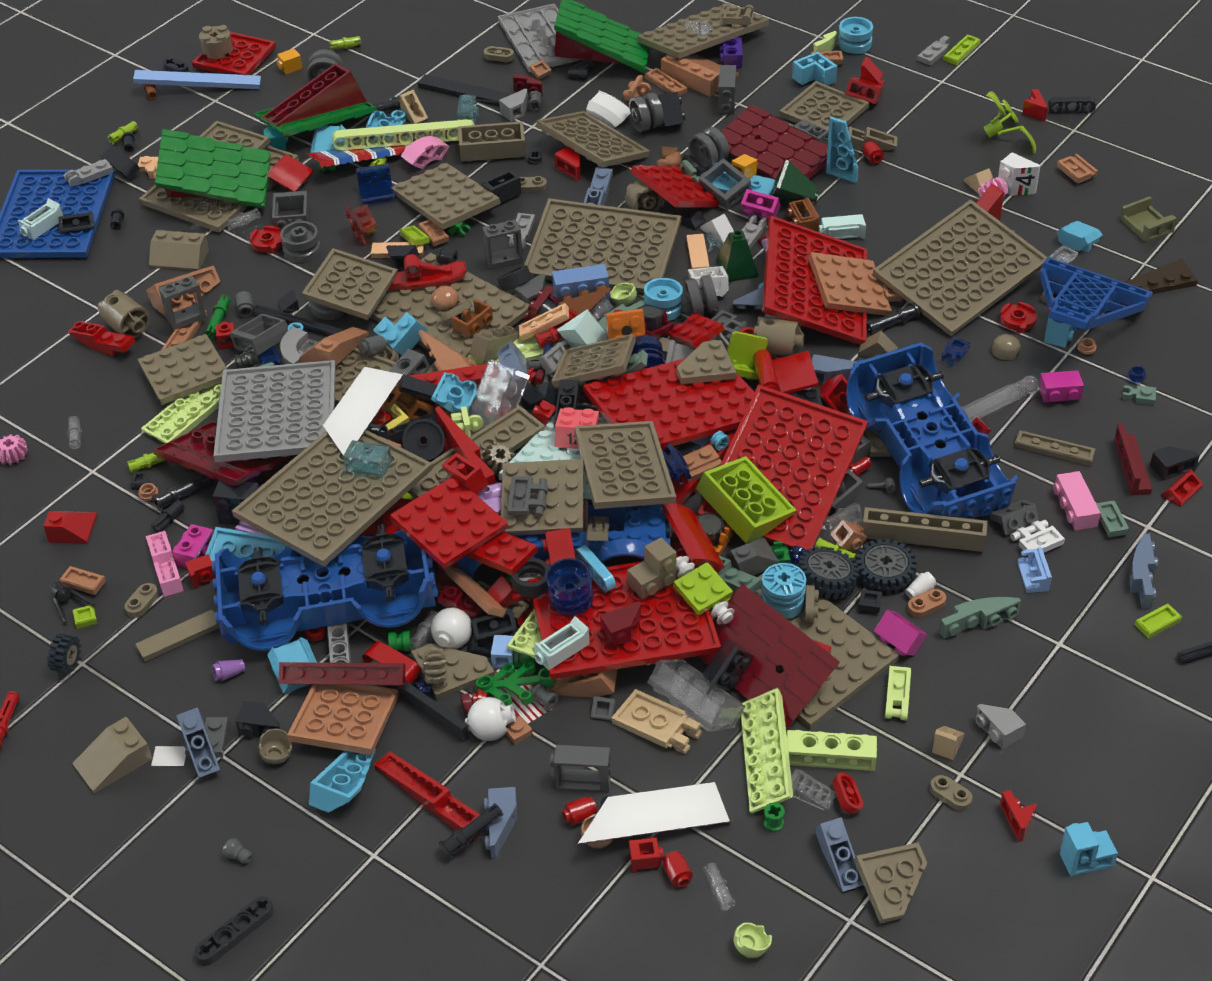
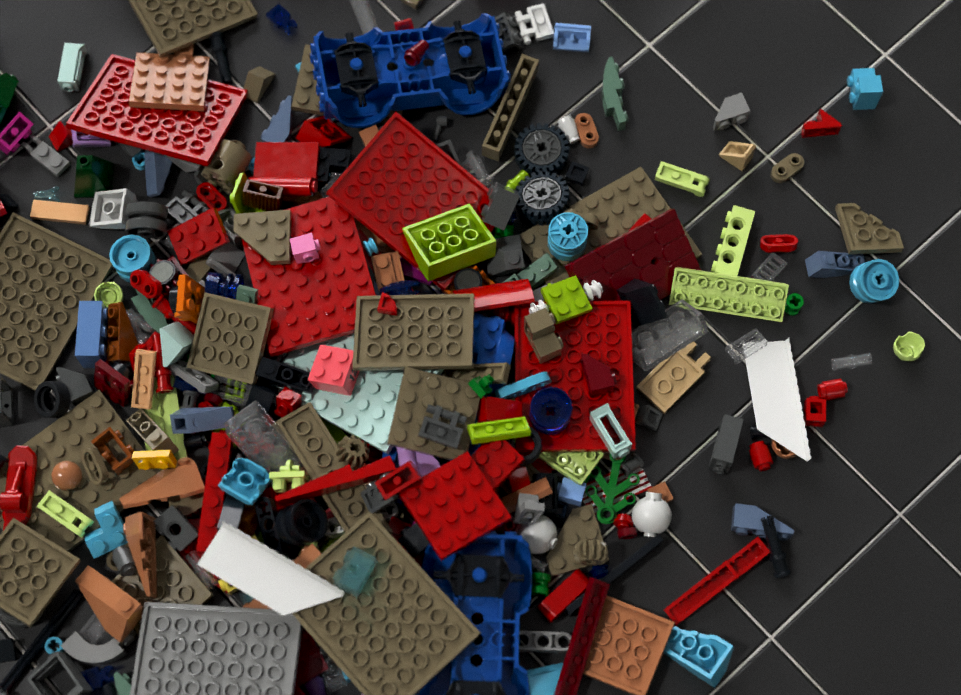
camera: 80 degrees left, 25 degrees up
(378, 351) = (141, 538): none -> nougat wedge
(410, 303) = (64, 513): none -> yellowish green plate
(465, 593) = (528, 509): none -> light grey slope
(467, 340) = (154, 459): none -> yellow piece
(535, 543) = (498, 430): none -> lime tile
(578, 522) = (481, 385): none -> green tile
(637, 302) = (146, 284): none -> red plate
(646, 438) = (387, 305): none -> red tile
(696, 384) = (305, 248): none -> bright pink brick
(707, 783) = (733, 354): none -> clear tile
(718, 227) = (28, 182): white slope -> none
(748, 358) = (262, 195): none -> reddish brown brick
(801, 527) = (501, 205): none -> dark grey brick
(803, 206) = (39, 105): dark orange window -> none
(824, 887) = (874, 281): none -> medium azure wheel
(849, 535) = (502, 169): nougat brick -> none
(900, 633) = (624, 158): dark pink brick -> none
(940, 424) = (415, 54): none -> dark red cone

